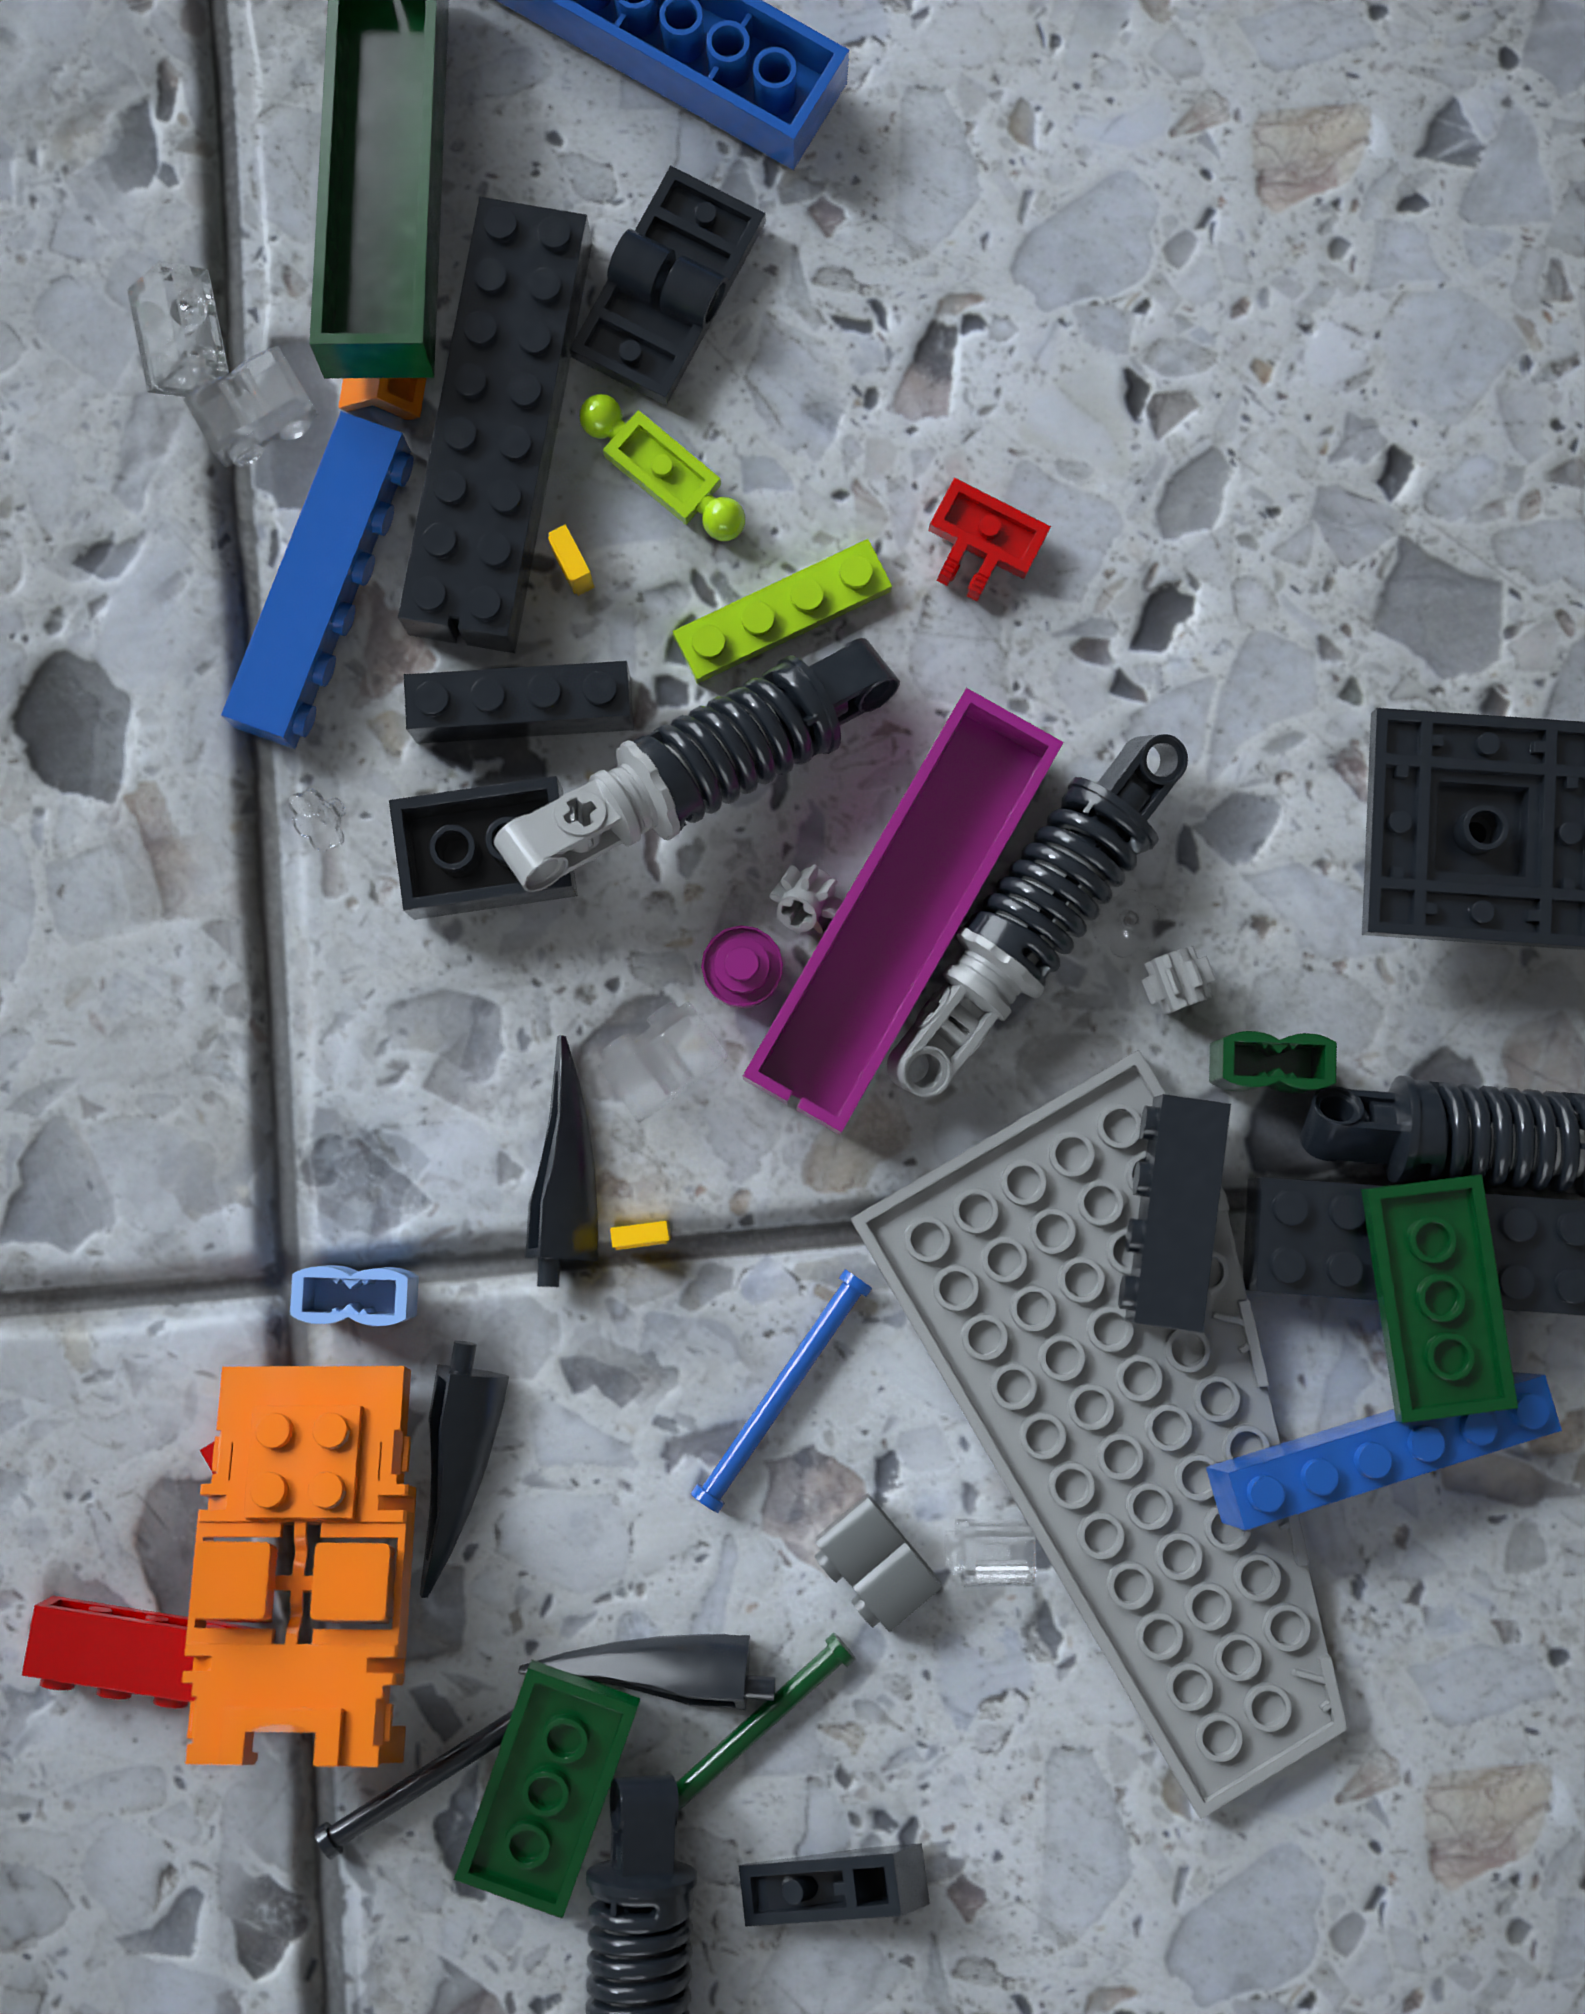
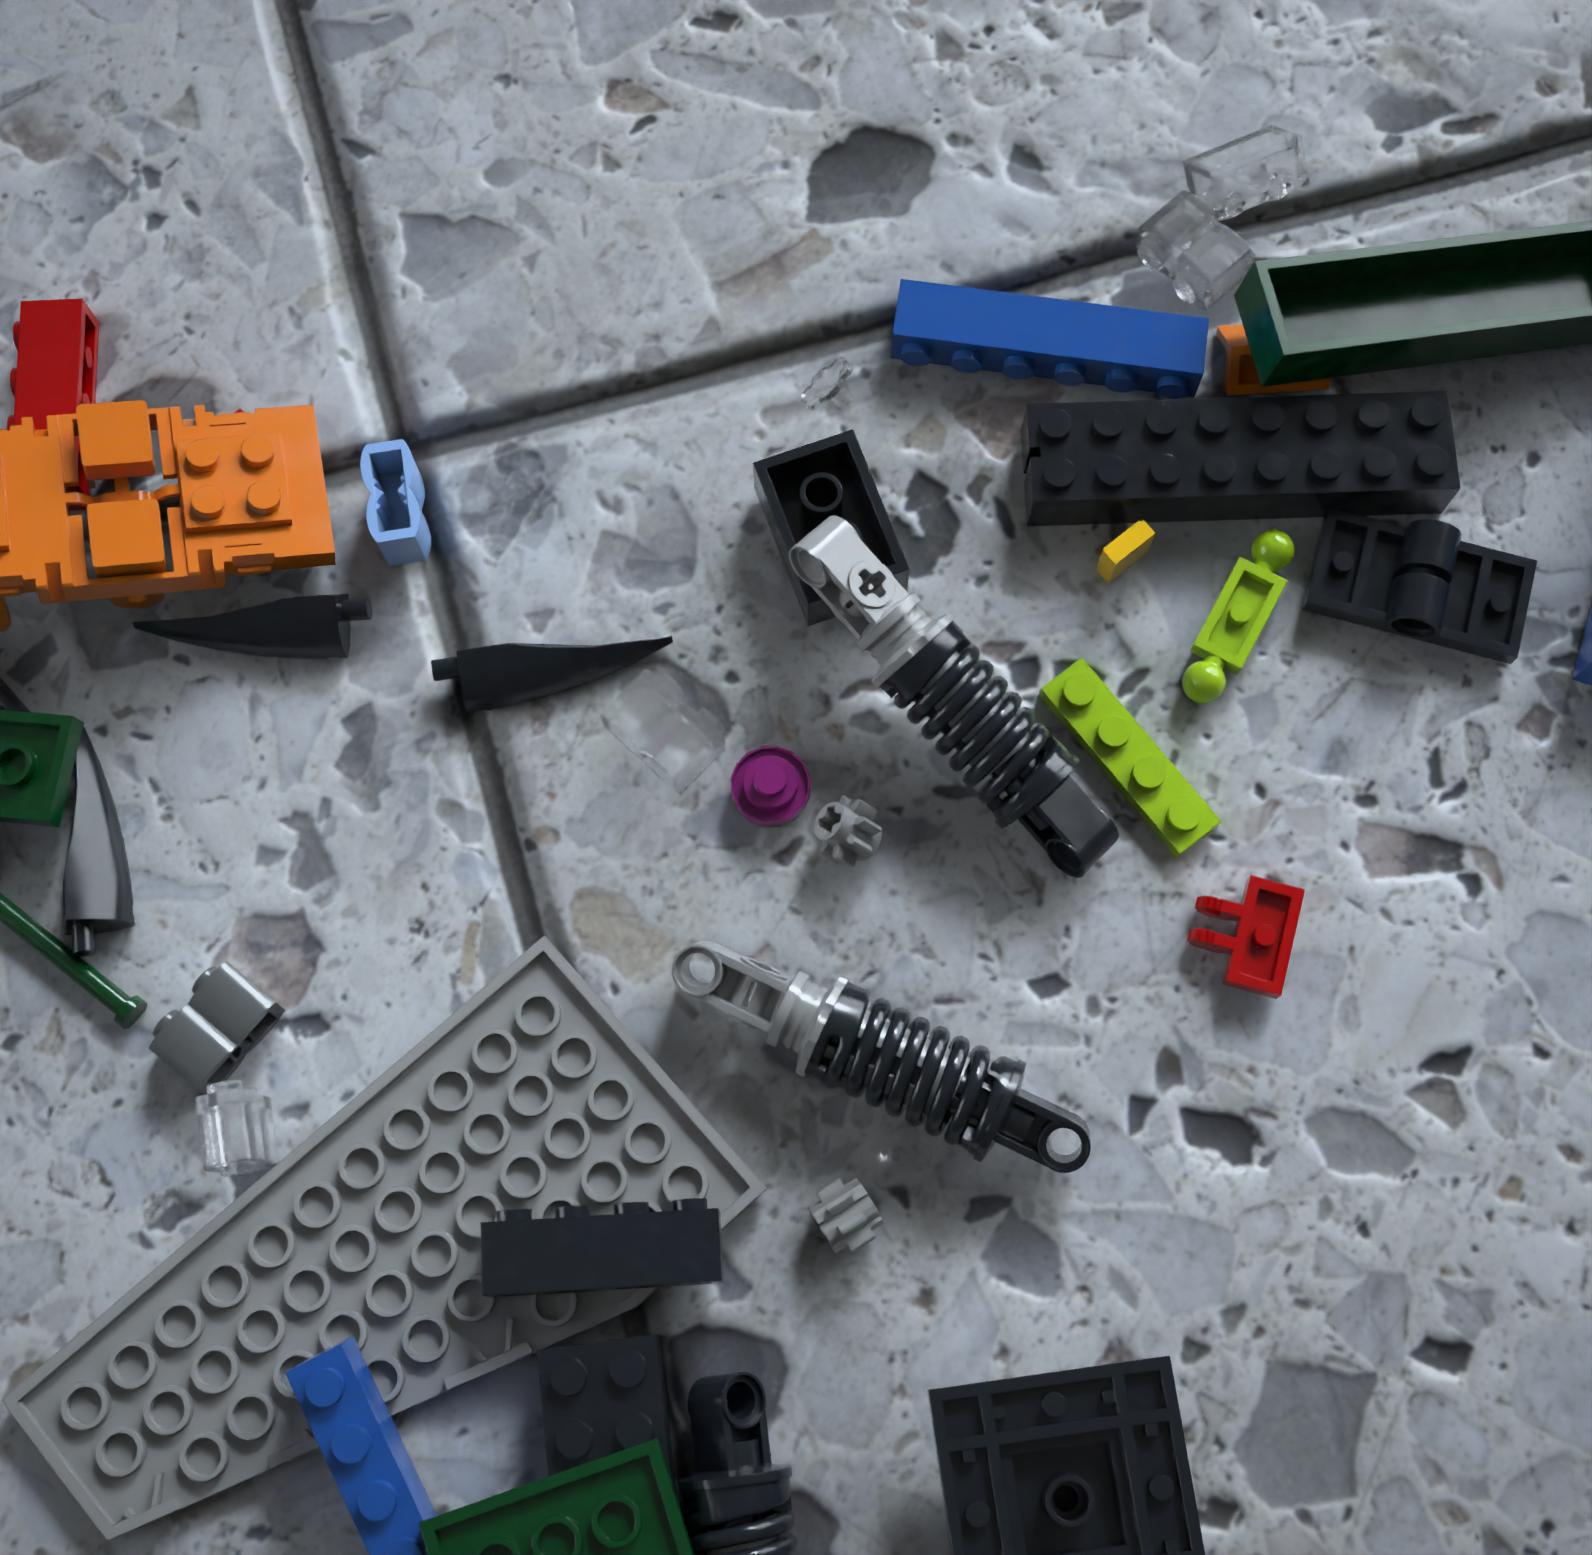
camera: 85 degrees right, 10 degrees down
(519, 702) = (977, 533): black brick -> none
(640, 1235) = (495, 744): yellow tile -> none
(780, 1392) = (263, 860): blue bar -> none
(902, 911) = (855, 922): magenta piece -> none
(1285, 1065) = (781, 1345): dark green brick -> none

